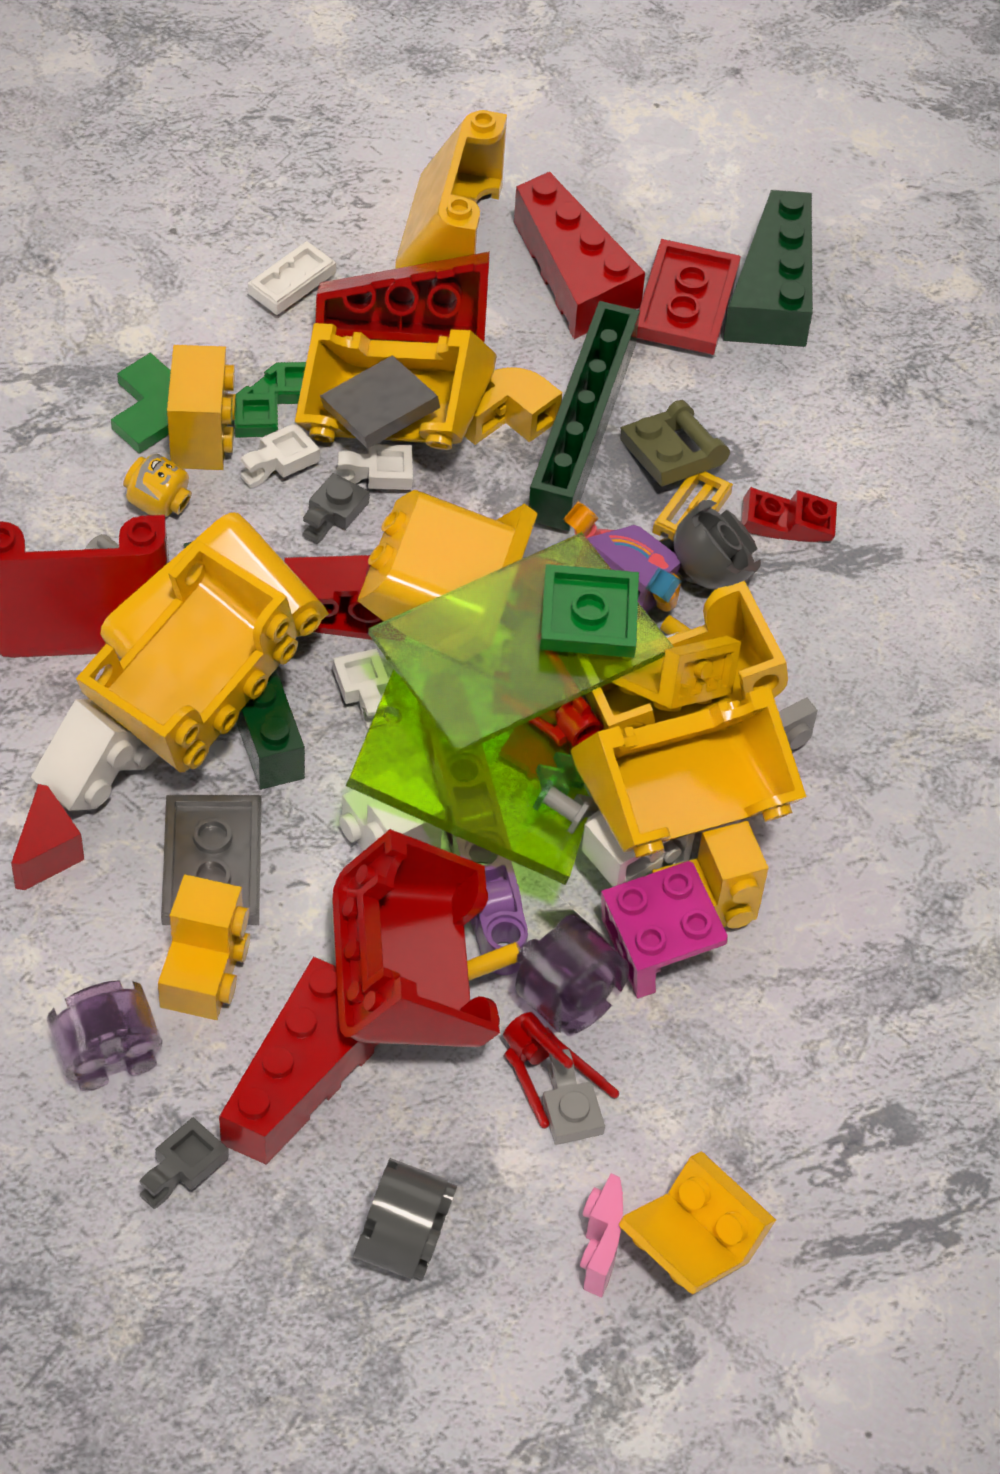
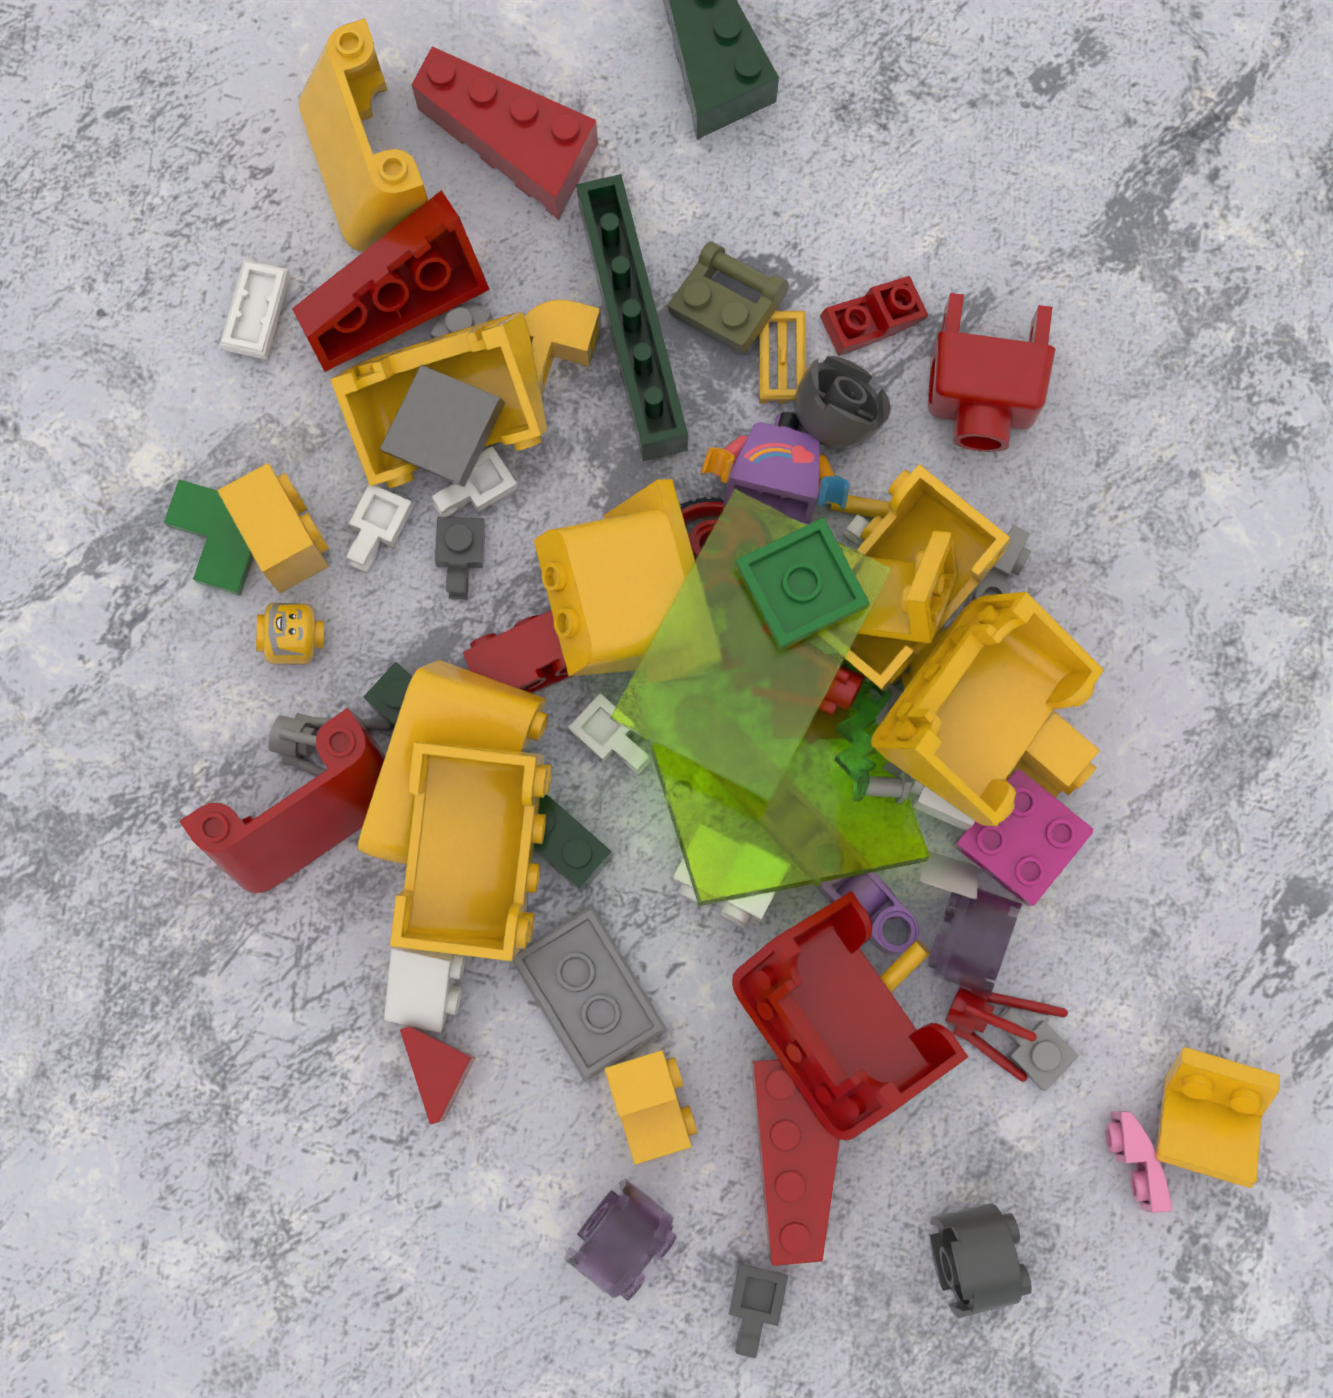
camera: 25 degrees left, 25 degrees up
(257, 405) = (313, 474): green tile -> none
(687, 296) = (639, 111): red plate -> none
(855, 591) = (989, 380): none -> red piece

